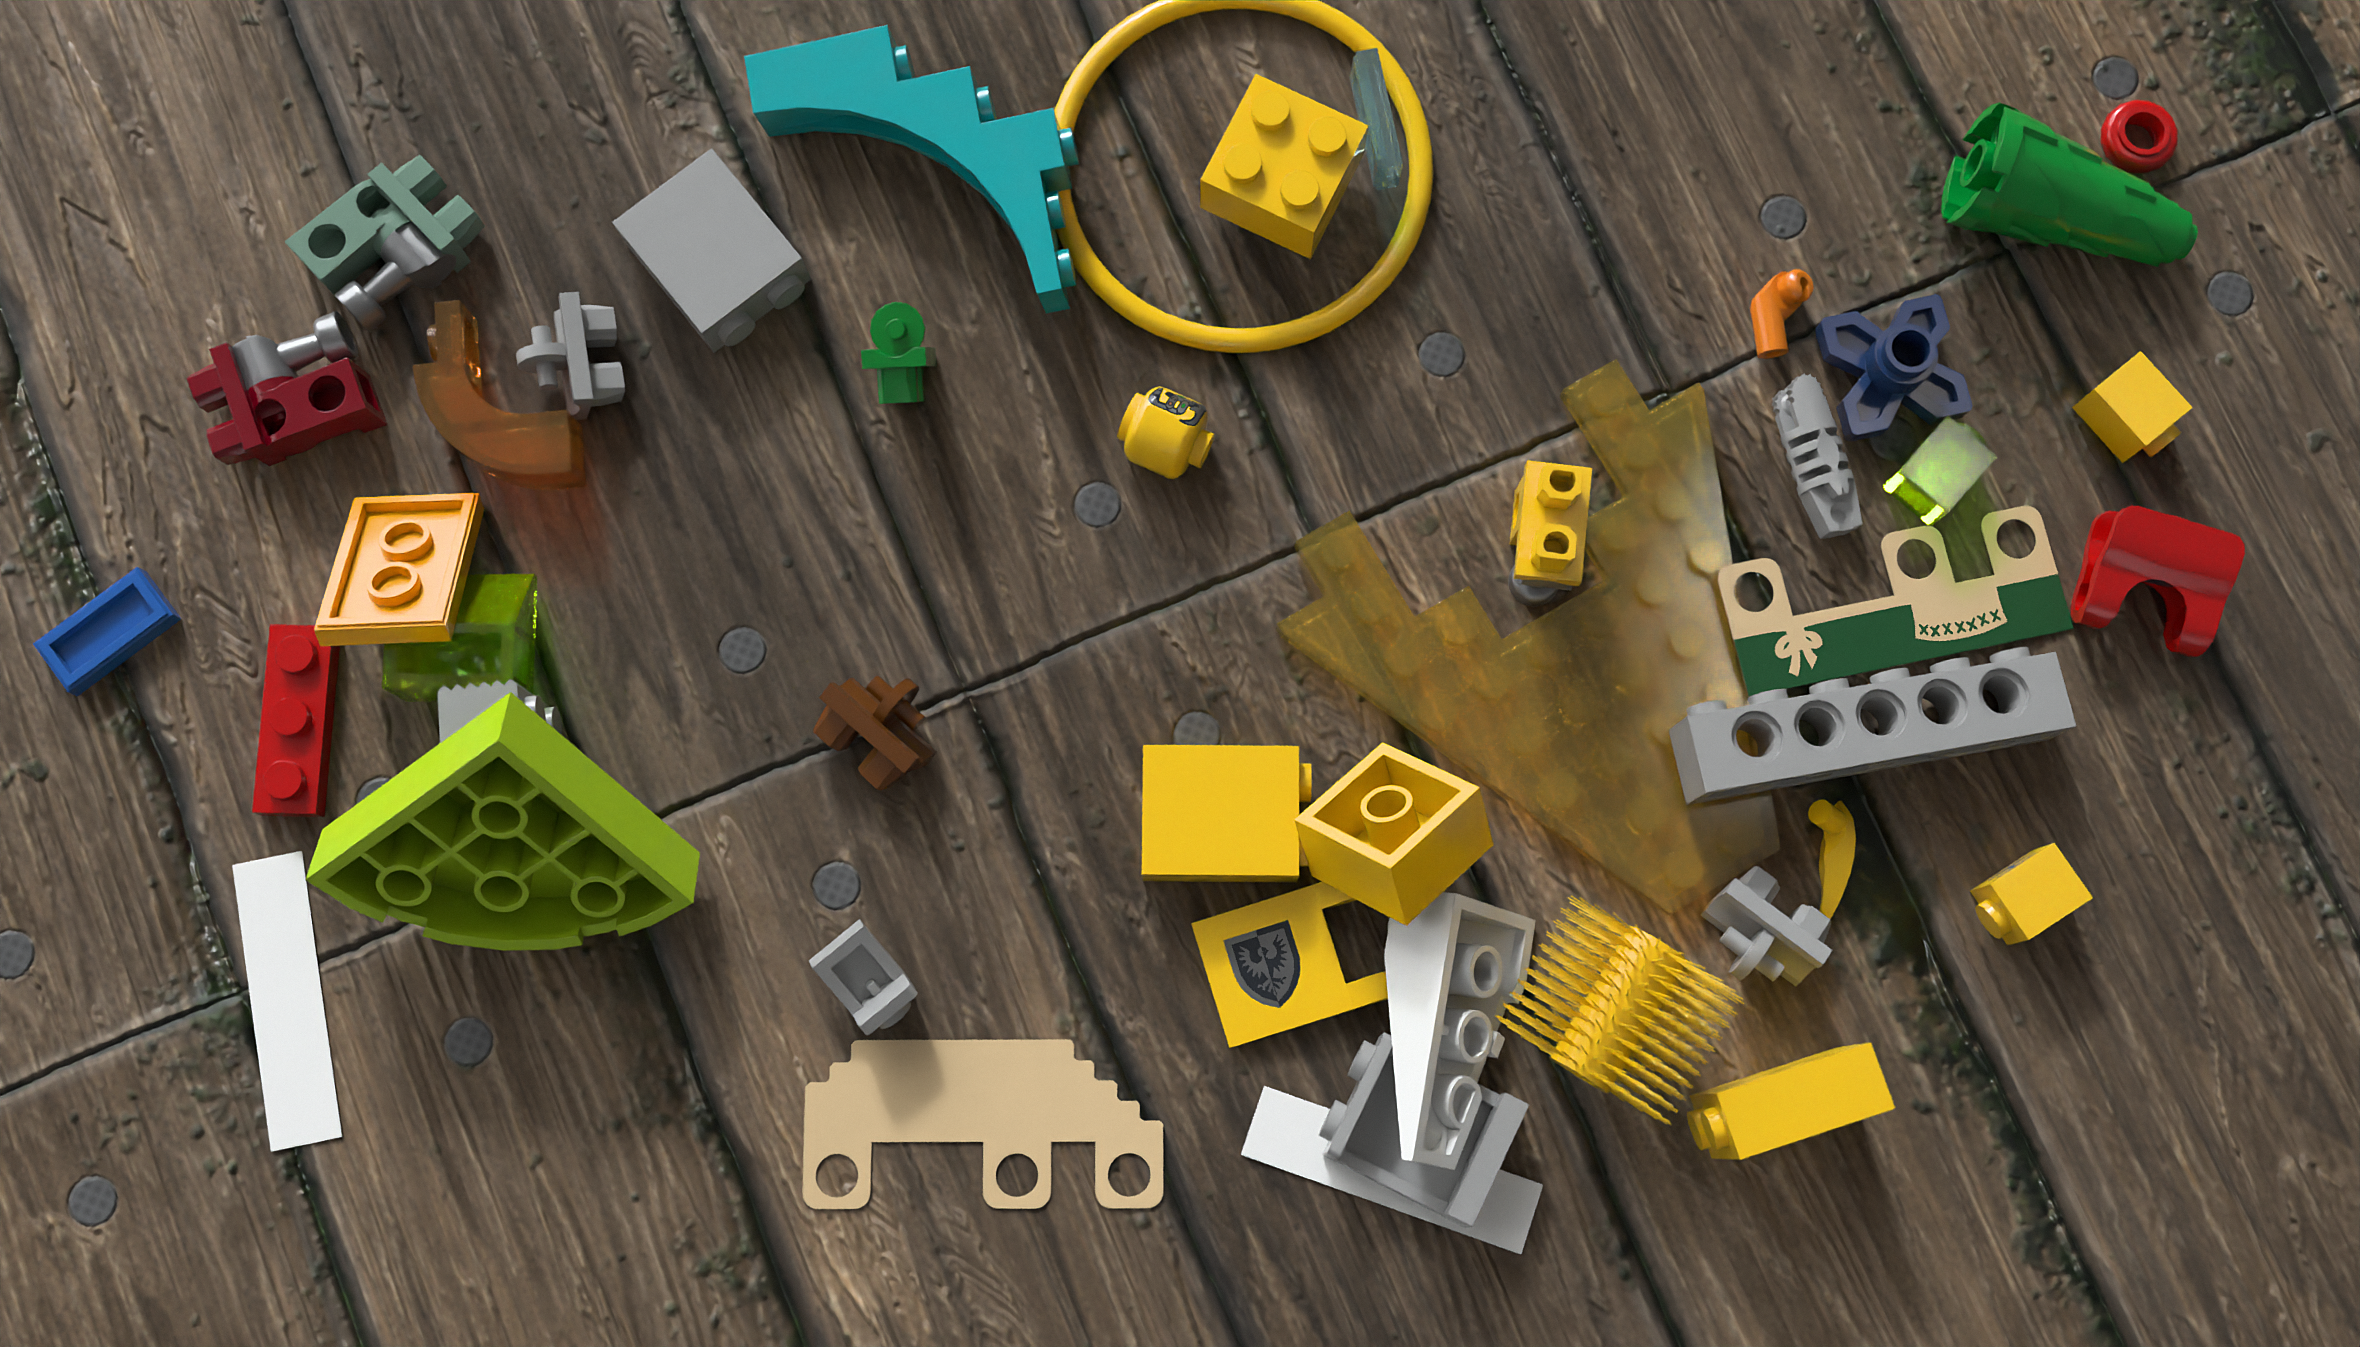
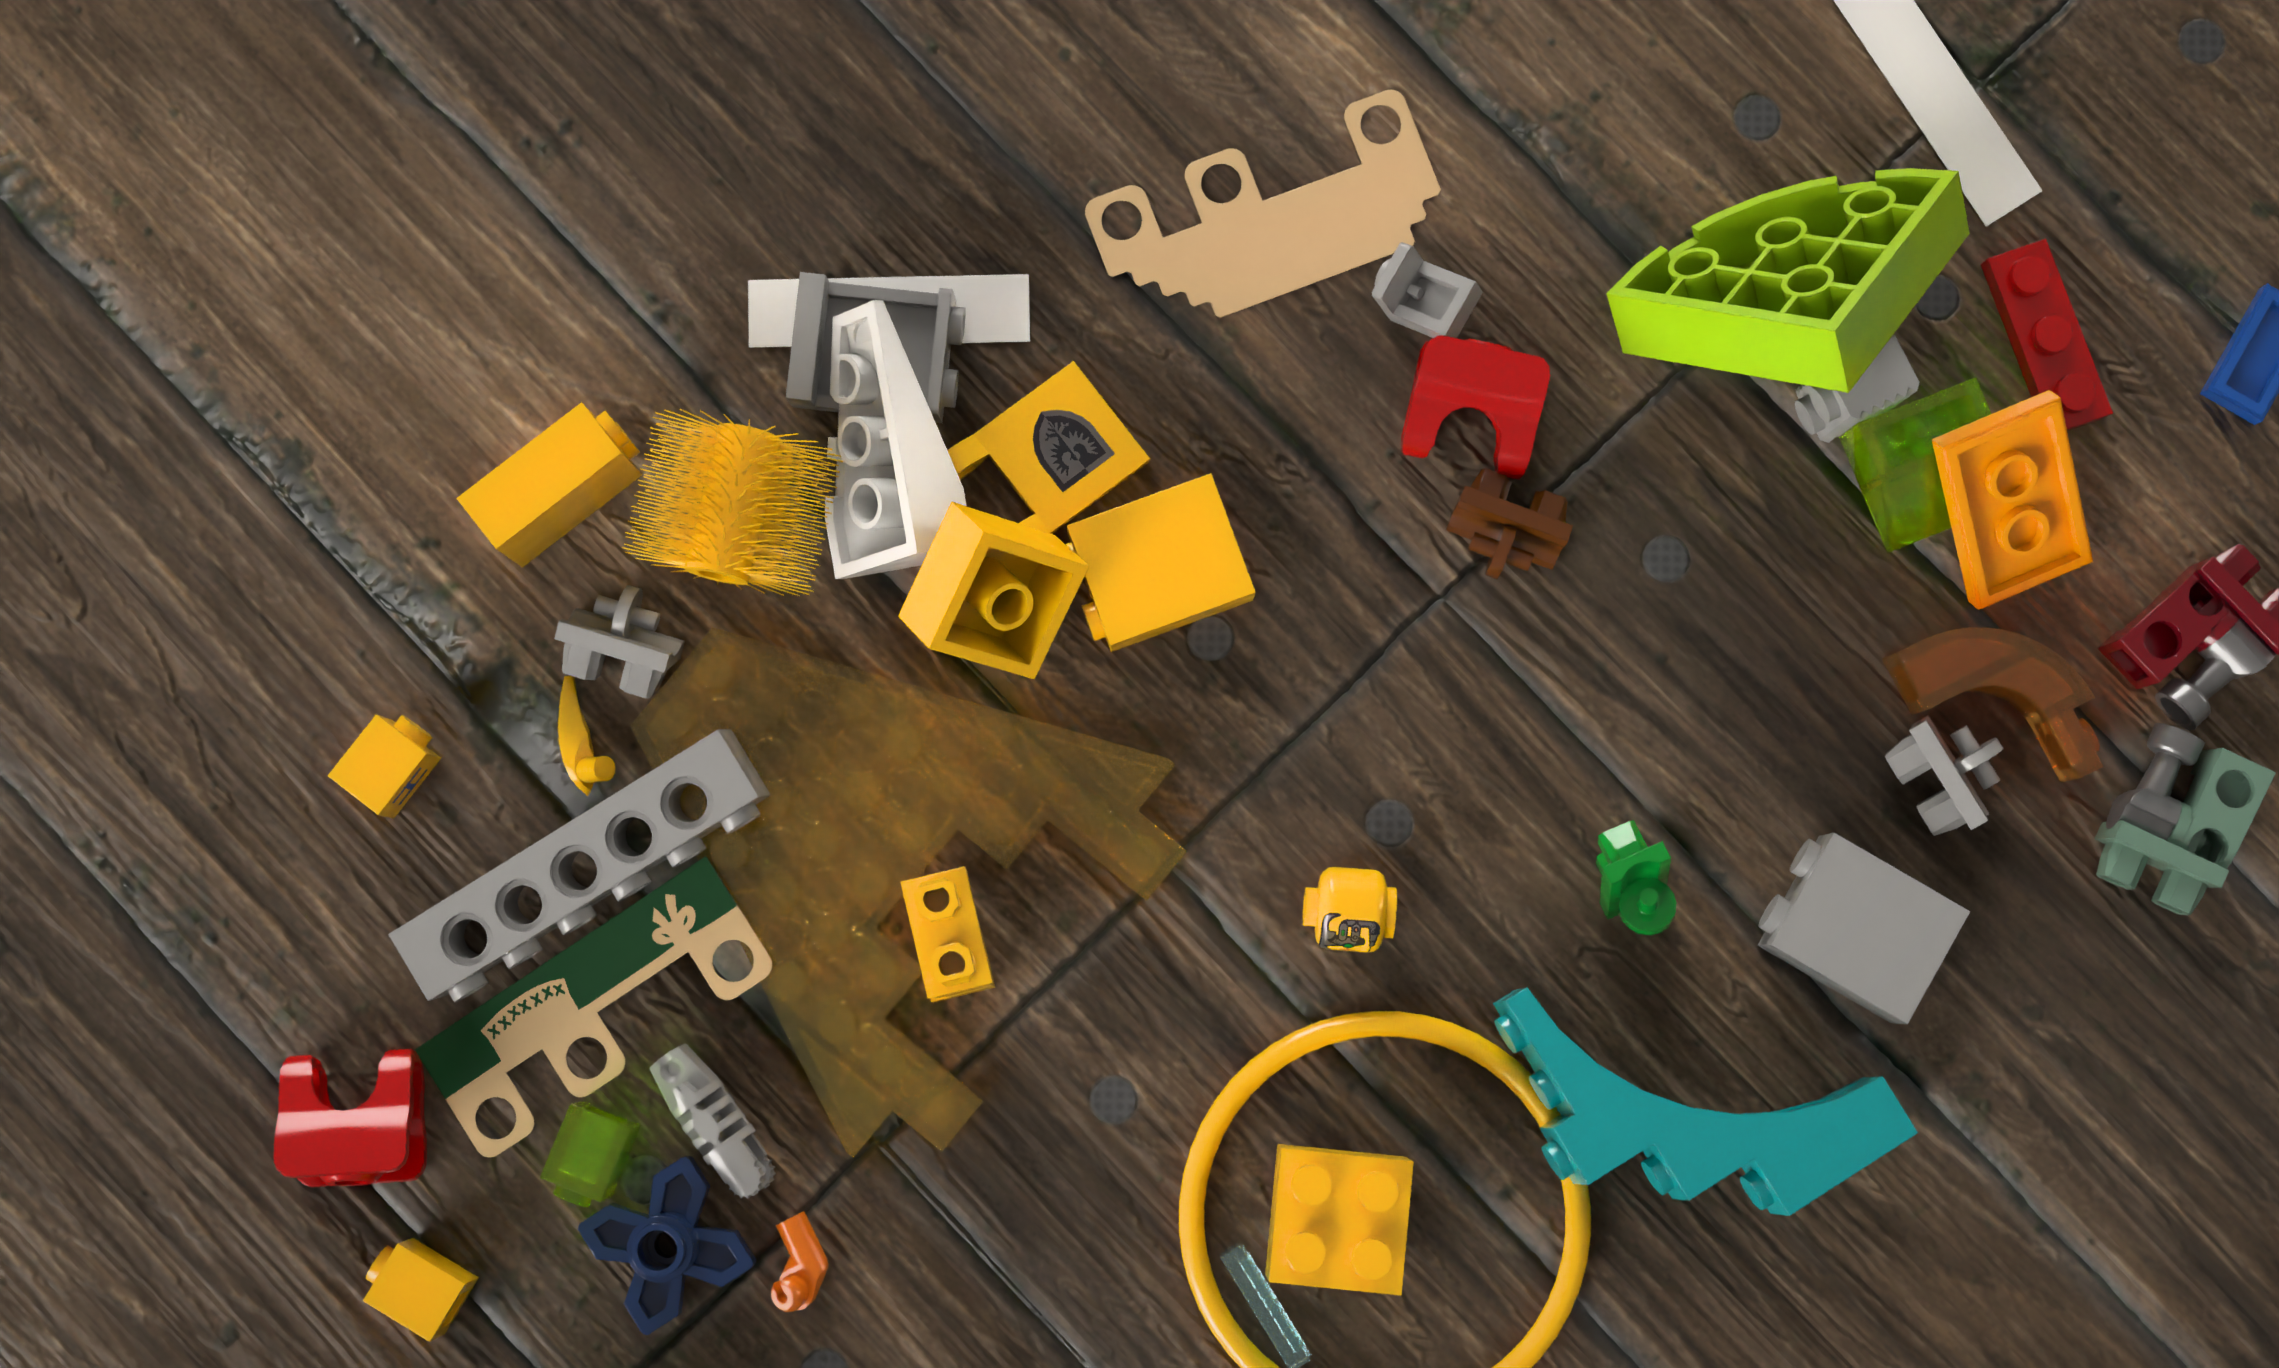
camera: 155 degrees right, 5 degrees up
(851, 877) = (1483, 377): none -> red piece

